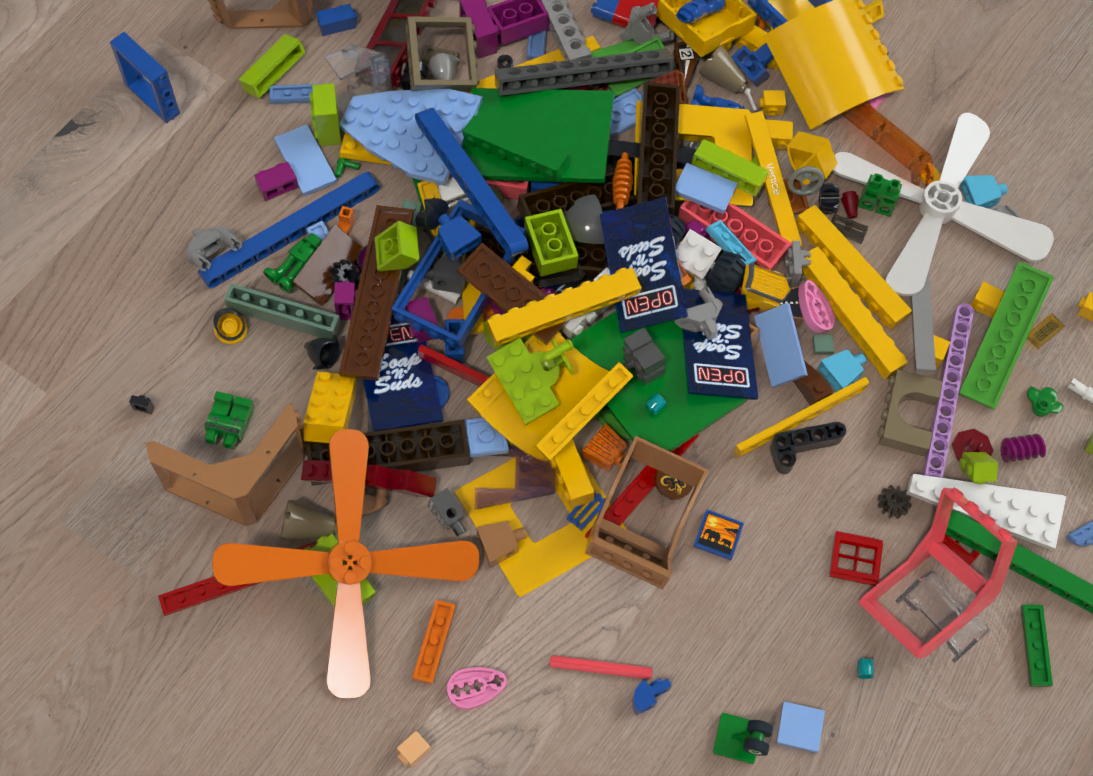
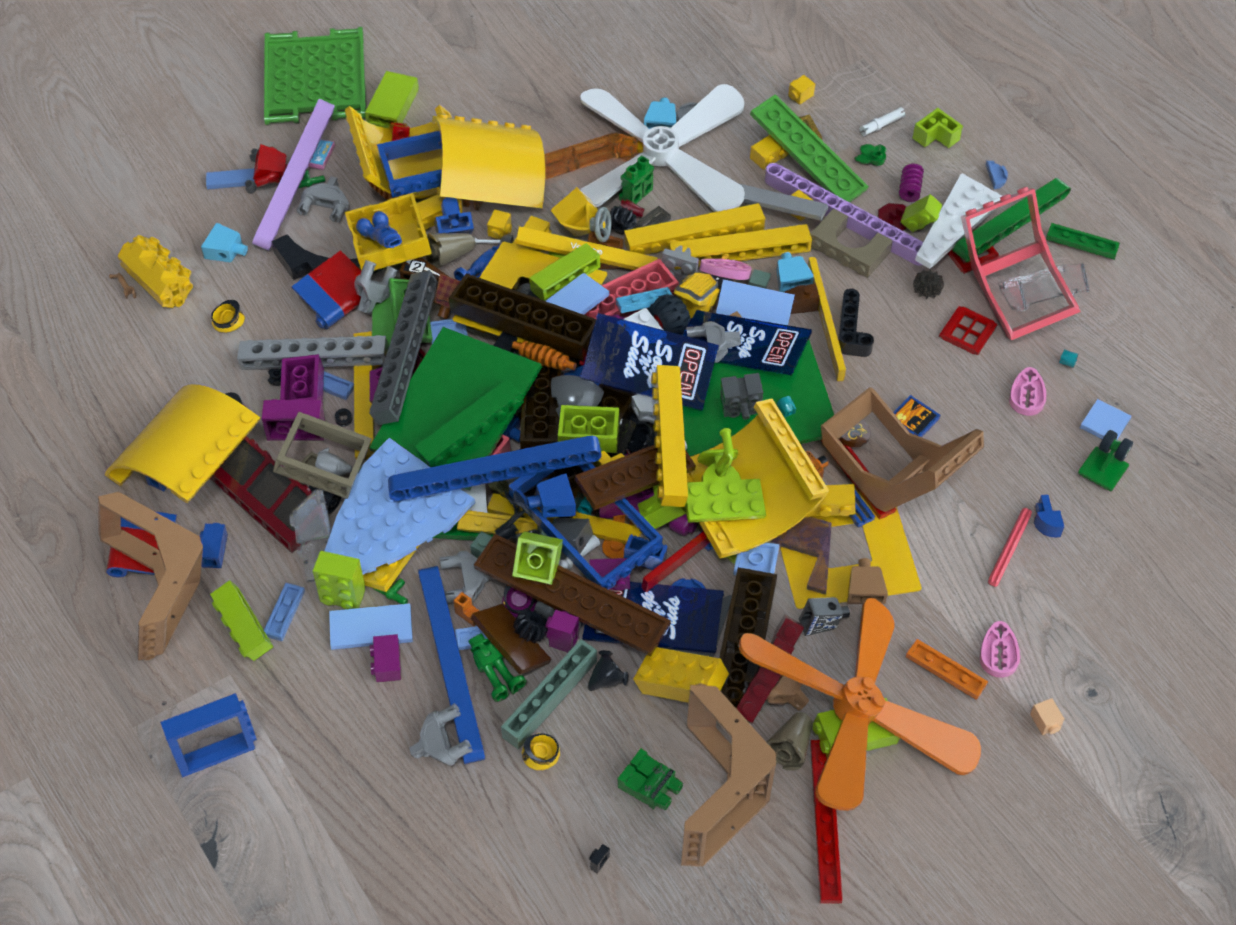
camera: 65 degrees left, 10 degrees down
(365, 218) = (473, 579): none -> light grey connector
(810, 629) = (1019, 391): none -> bright pink piece

